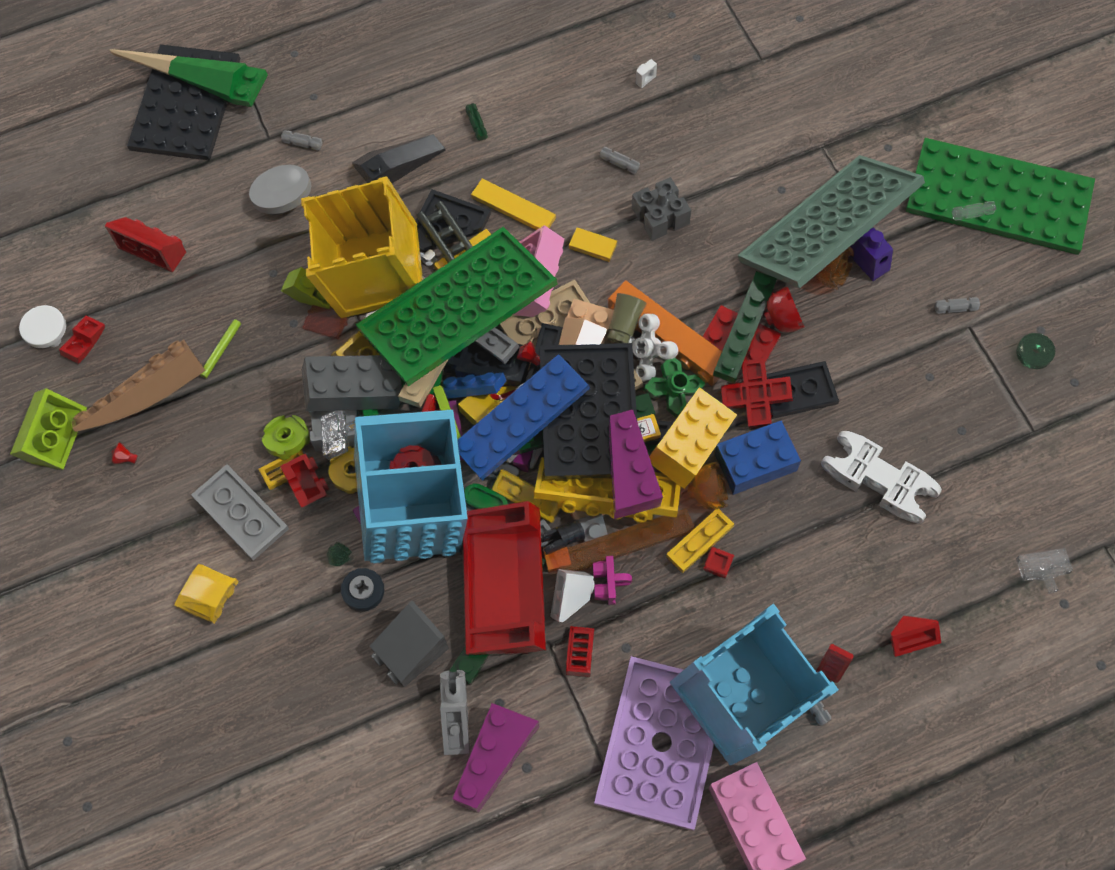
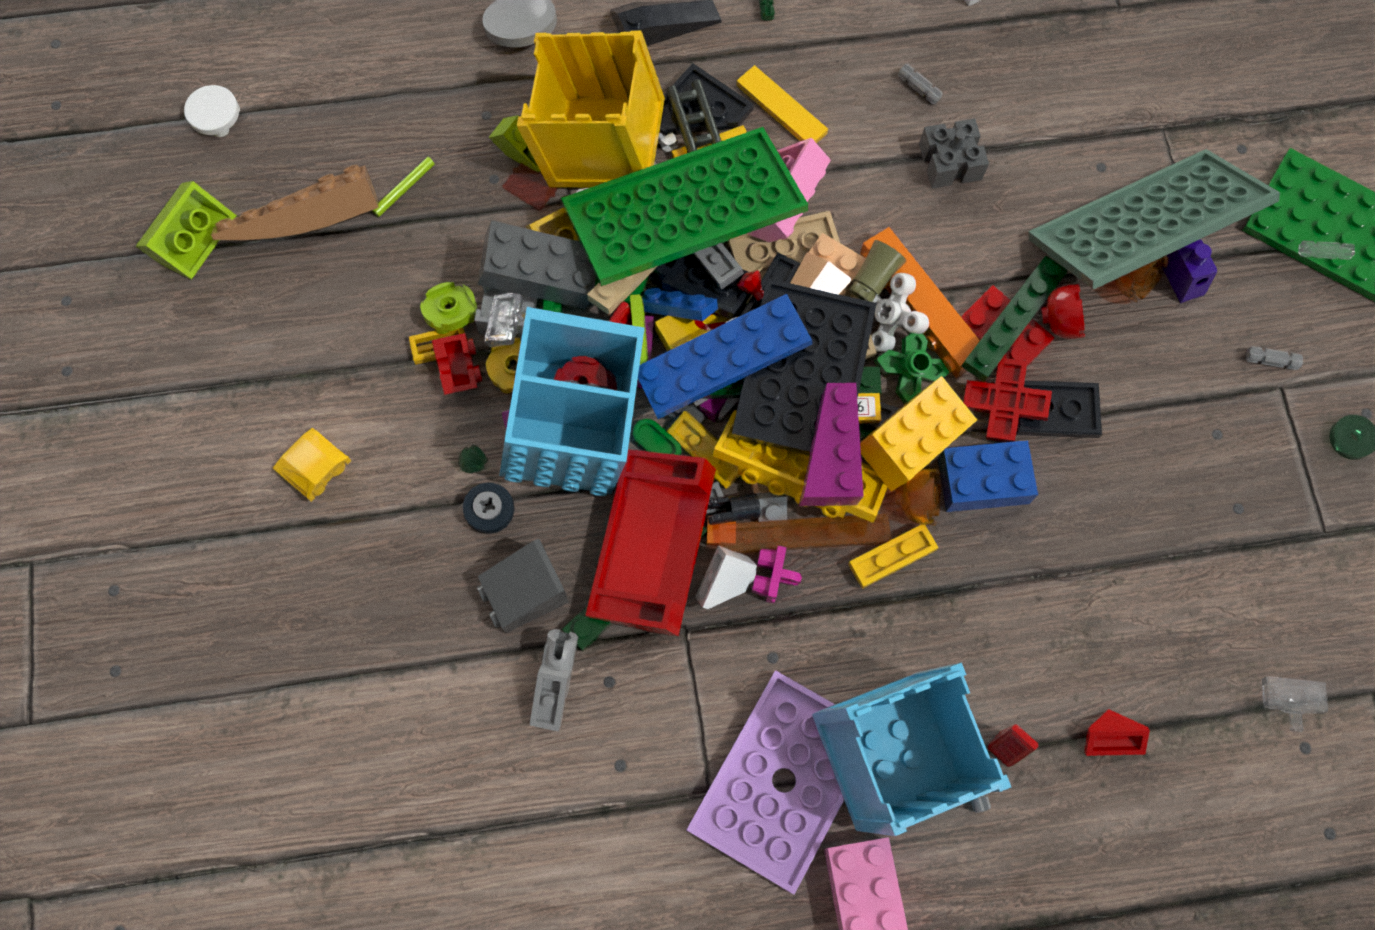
camera: 10 degrees right, 5 degrees up
(84, 338) = (256, 133): red slope -> none
(122, 454) = (260, 280): red rock -> none
(146, 242) = (352, 43): red slope -> none
(240, 512) = (374, 381): light grey plate -> none
(495, 750) = (589, 736): magenta wedge -> none
(576, 670) = (709, 669): red slope -> none
(593, 244) = (862, 175): yellow tile -> none
(718, 562) = (907, 587): red tile -> none
(881, 476) = (1128, 538): white piece -> none

